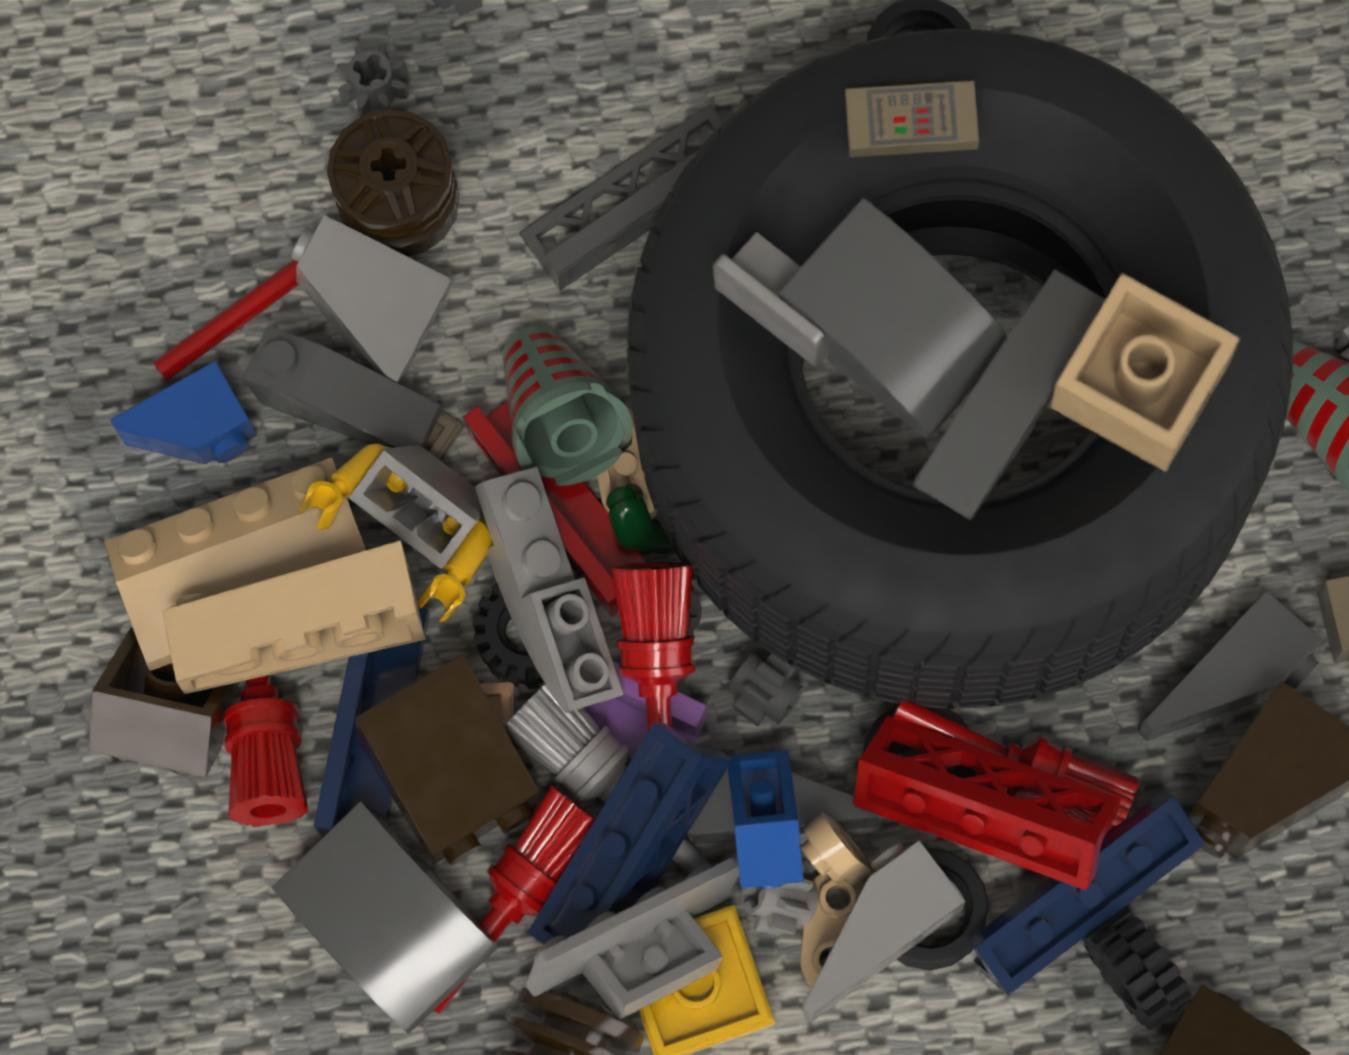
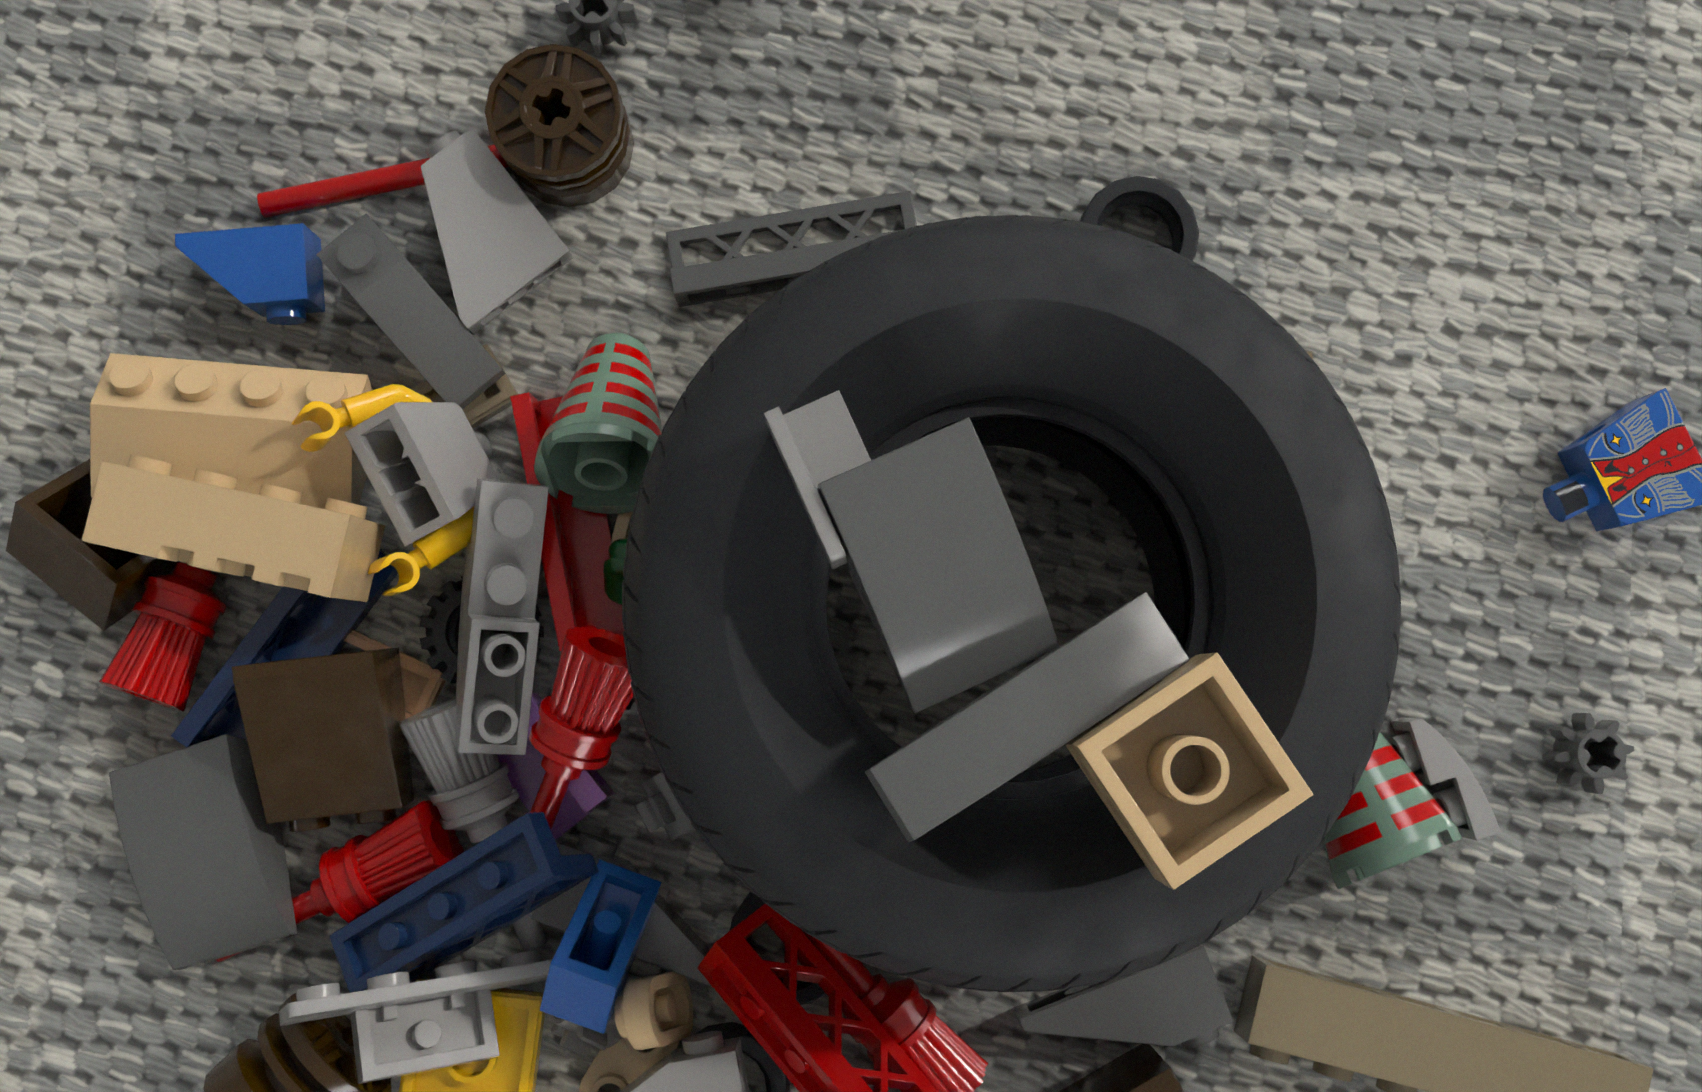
camera: 15 degrees right, 10 degrees up
(911, 119) = (1075, 340): dark tan tile -> none

